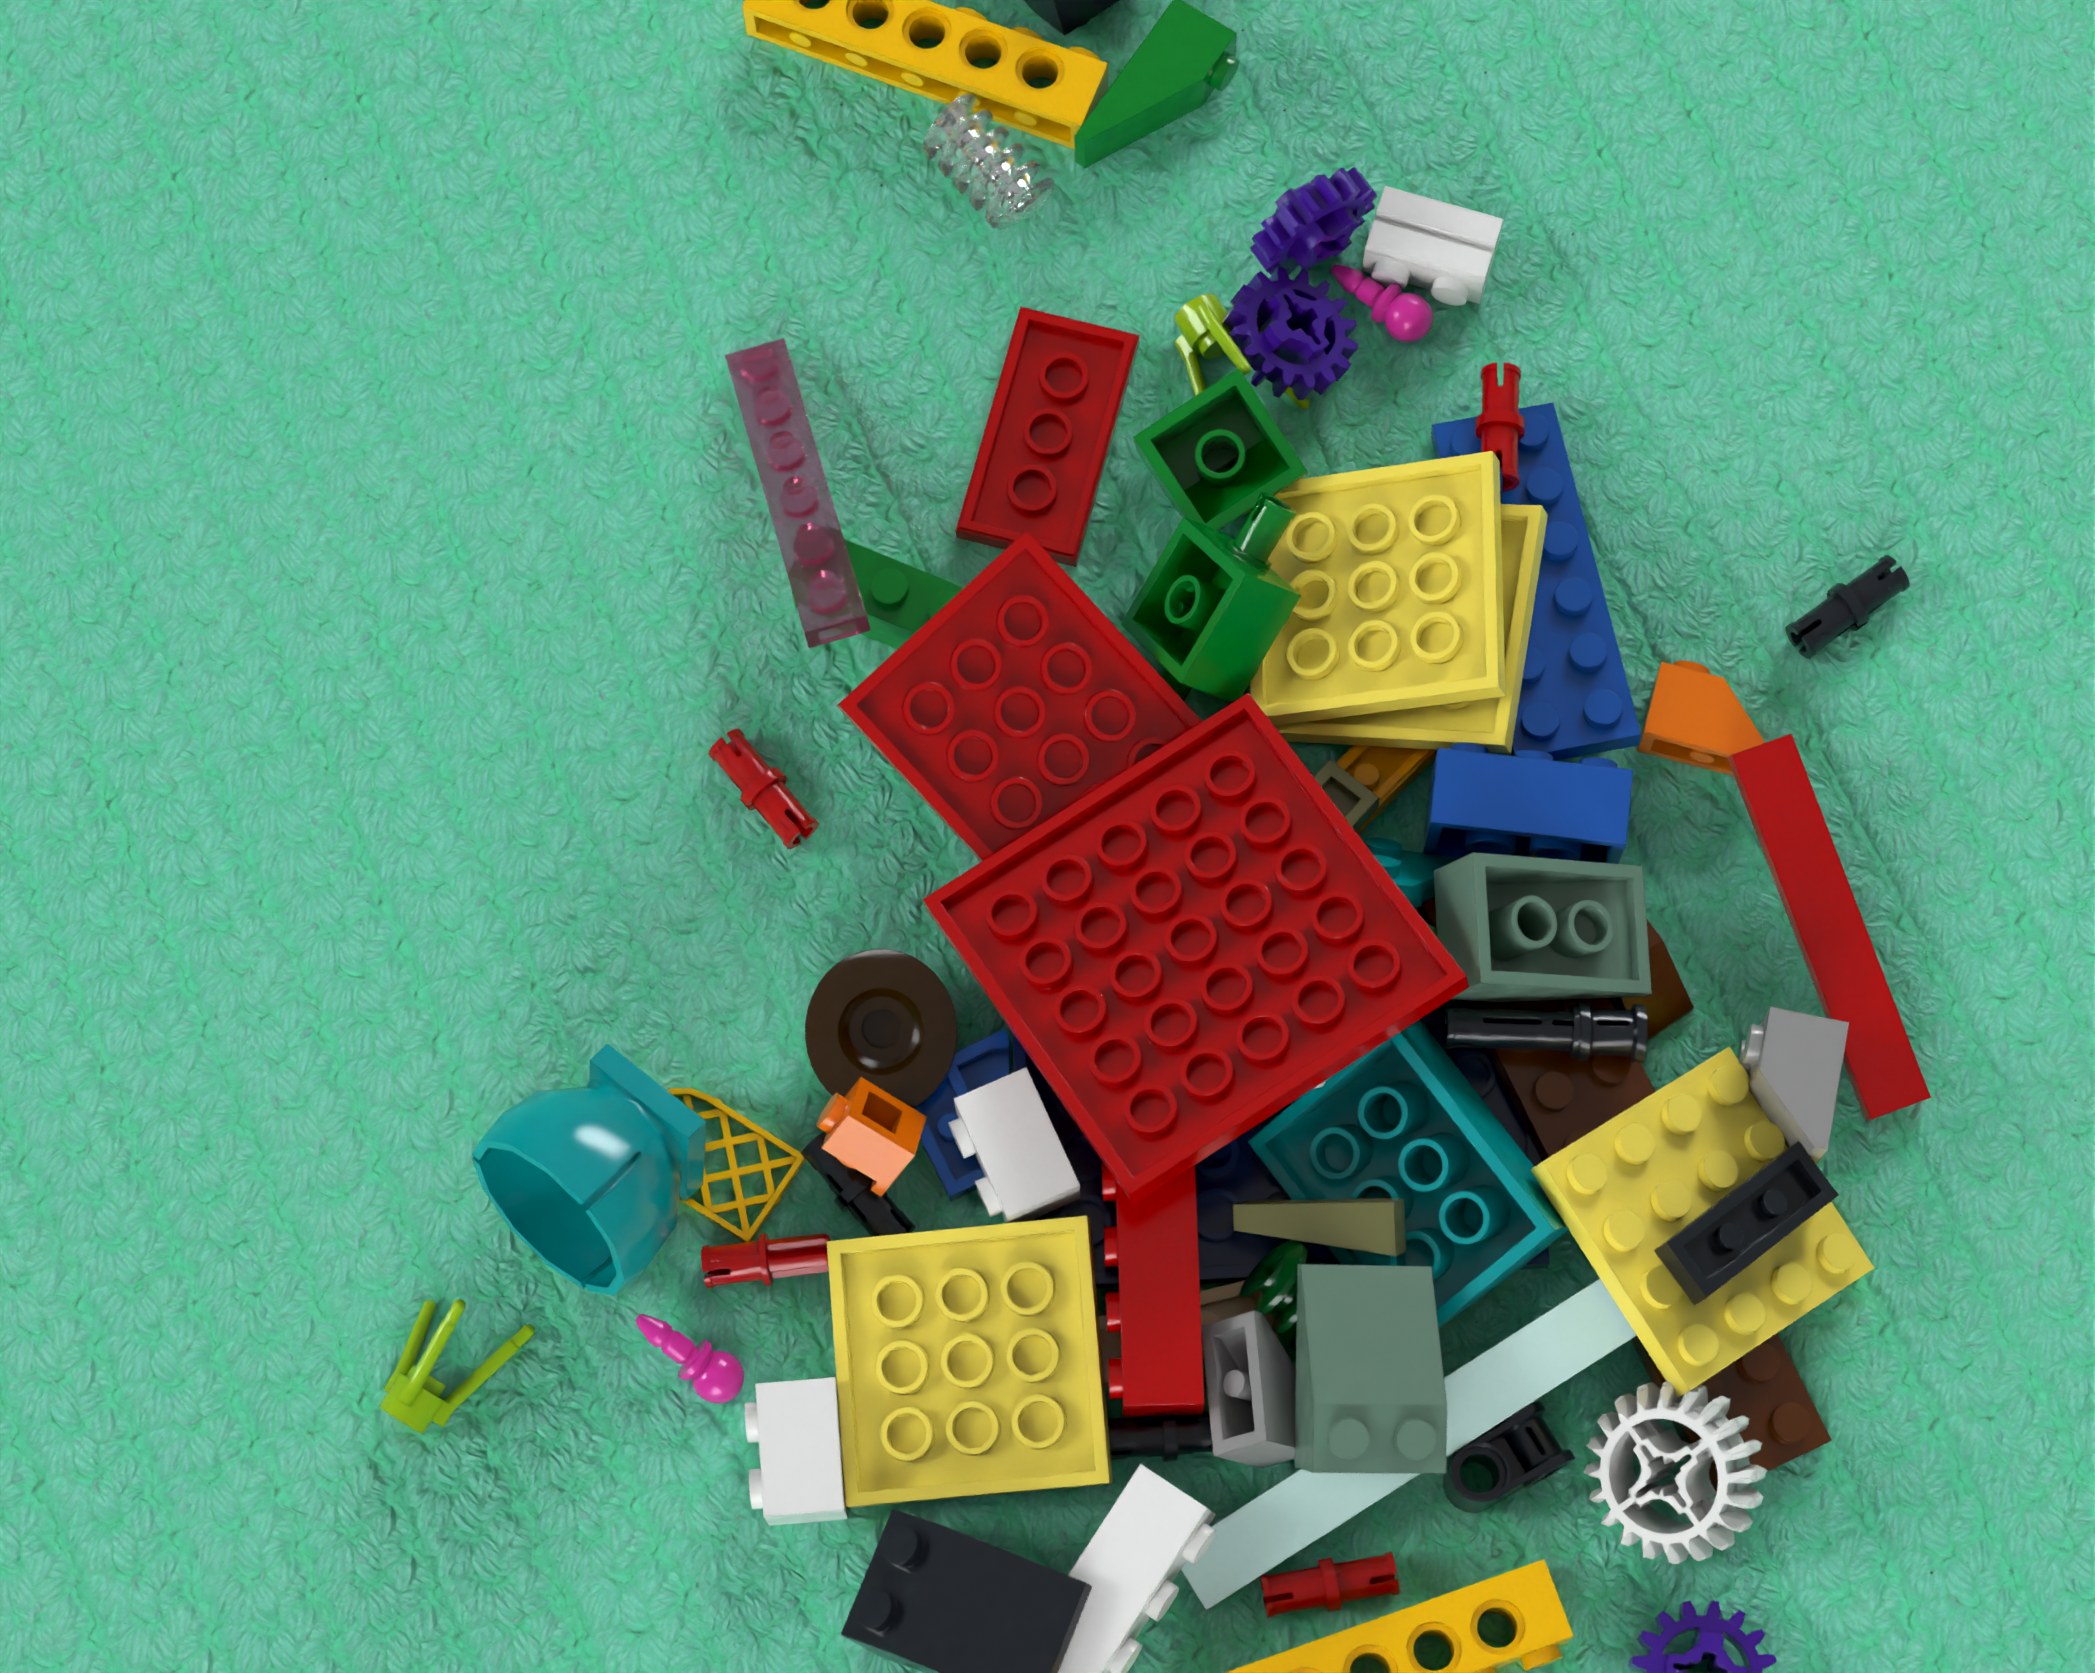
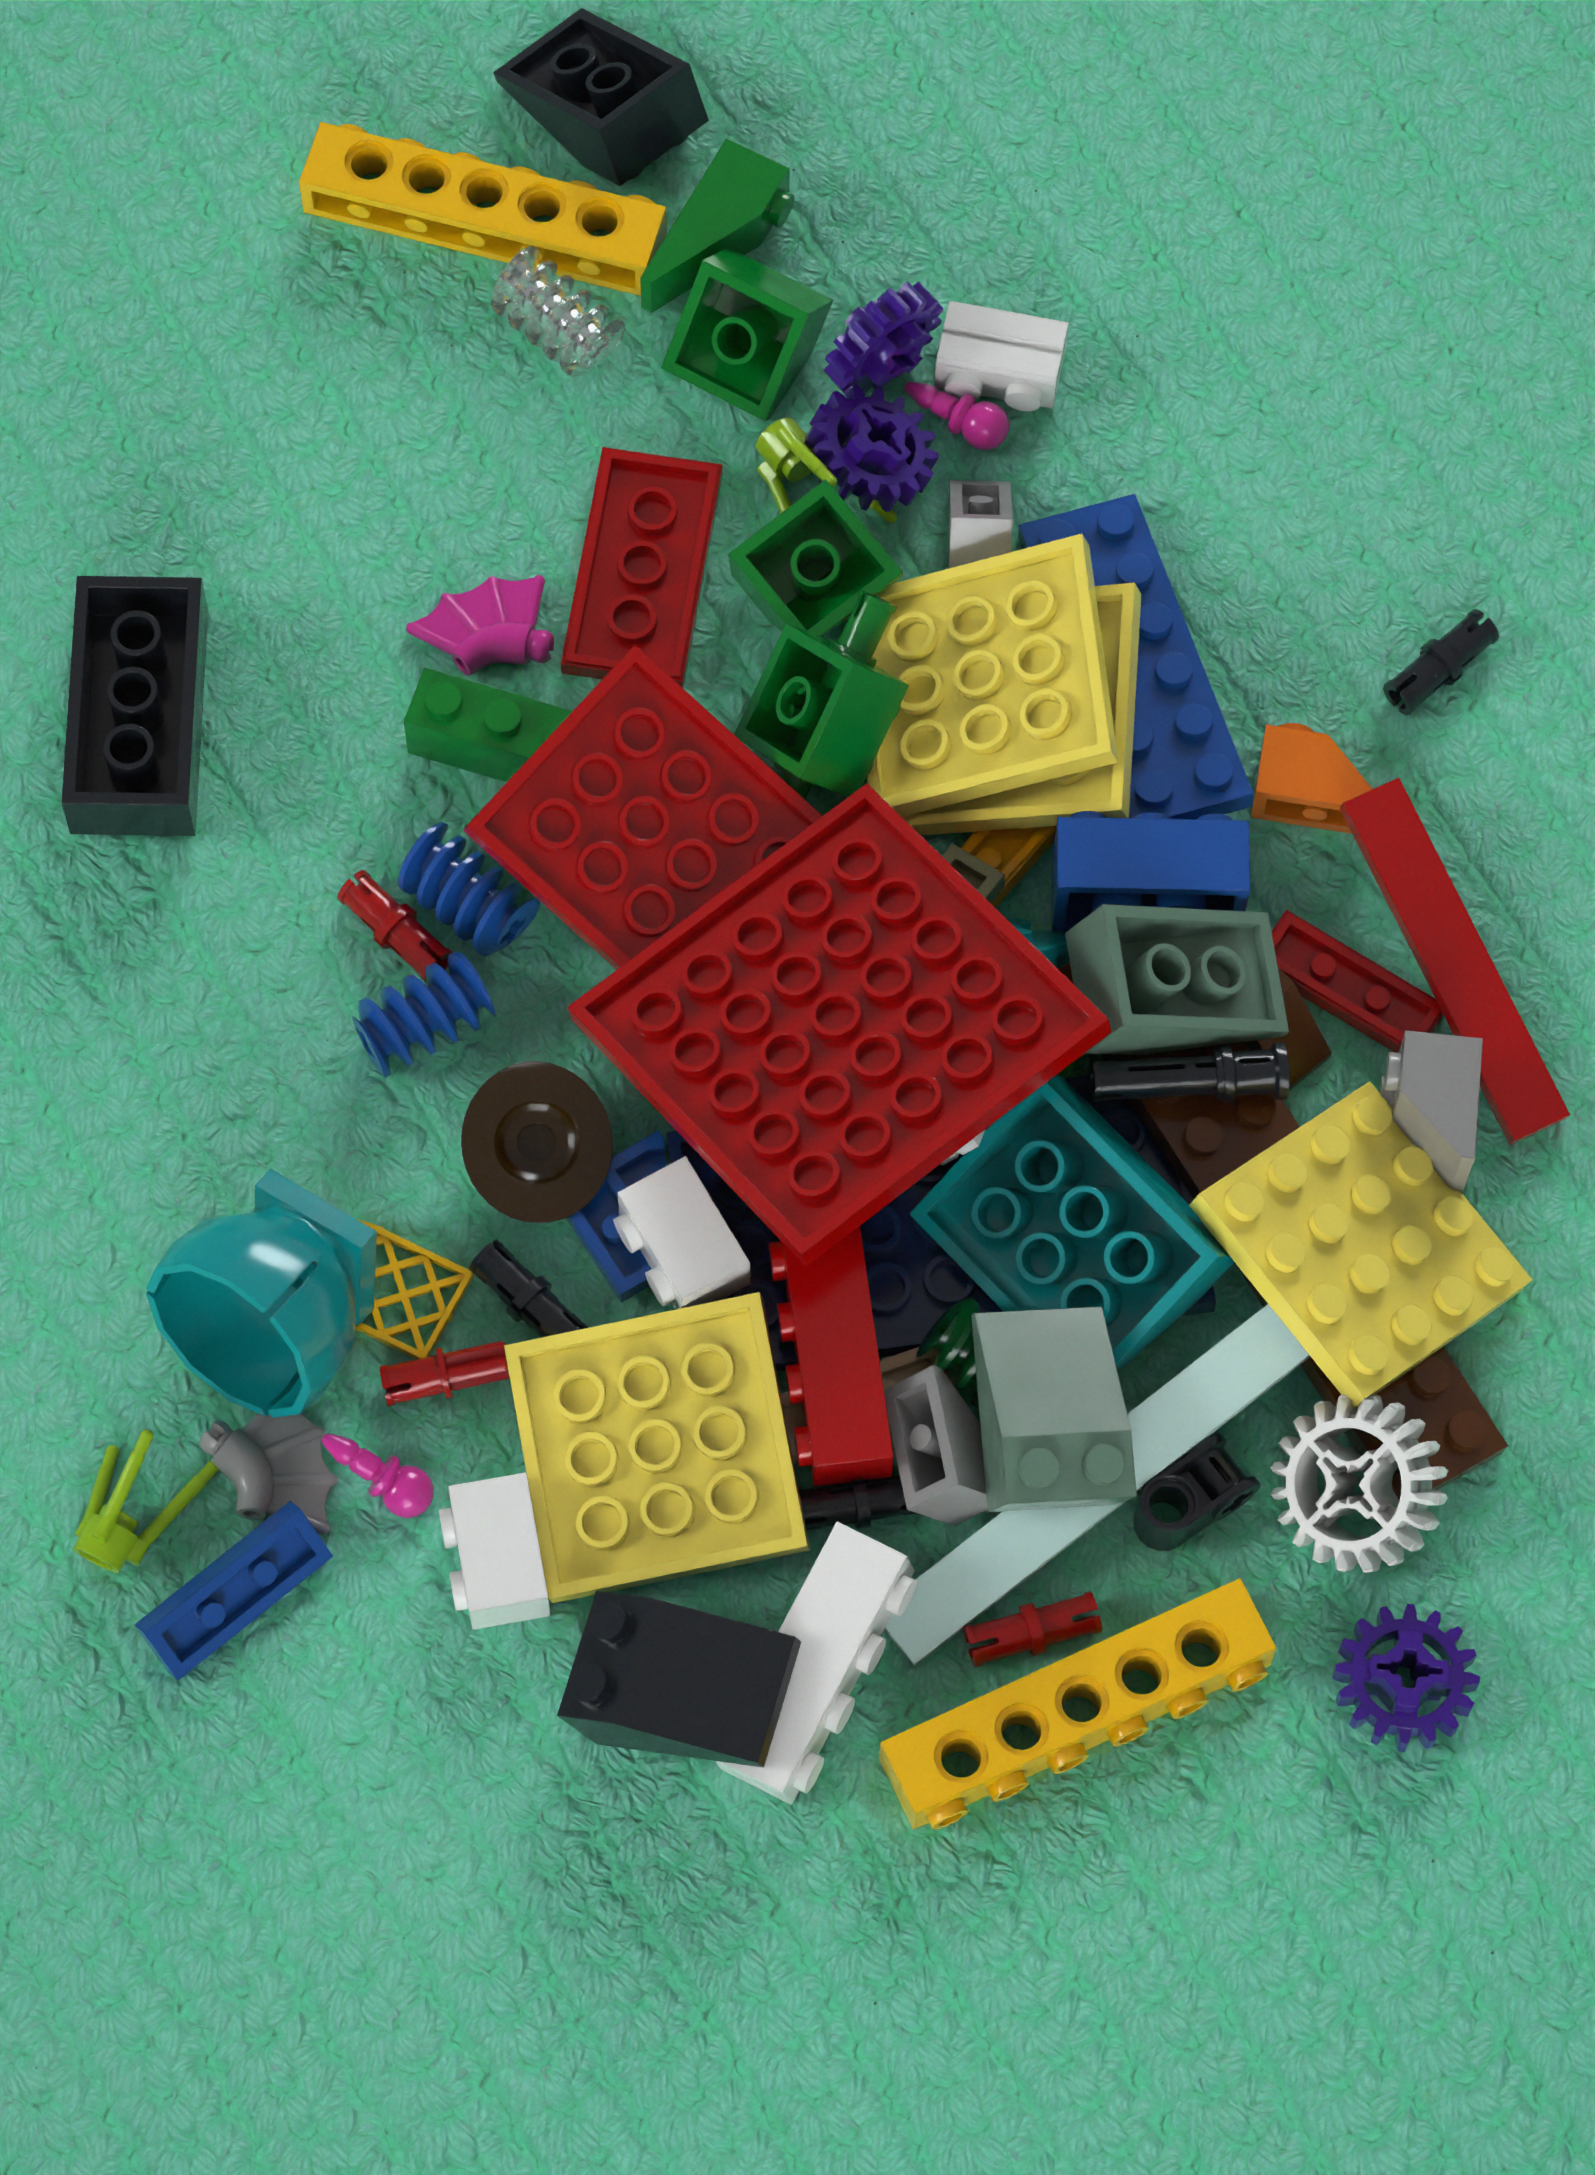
camera: 10 degrees left, 5 degrees down
(525, 539) = (135, 706): none -> black brick
(533, 1466) = (233, 1590): none -> blue plate
(587, 1342) = (272, 1465): none -> light grey arm
(779, 884) = (422, 1012): none -> blue piece
(797, 494) = (402, 636): clear pink plate -> none
(833, 763) = (464, 895): none -> blue piece
(871, 1132) = (538, 1237): orange brick -> none
(891, 482) = (488, 625): none -> dark pink arm
(1176, 199) = (745, 332): none -> green slope
(1354, 1224) = (1012, 1275): olive piece -> none
(1391, 420) = (978, 521): none -> light grey slope
(1500, 422) = (1086, 511): red pin -> none
(1722, 939) = (1351, 984): none -> red tile
(1746, 1223) = (1403, 1236): black plate -> none

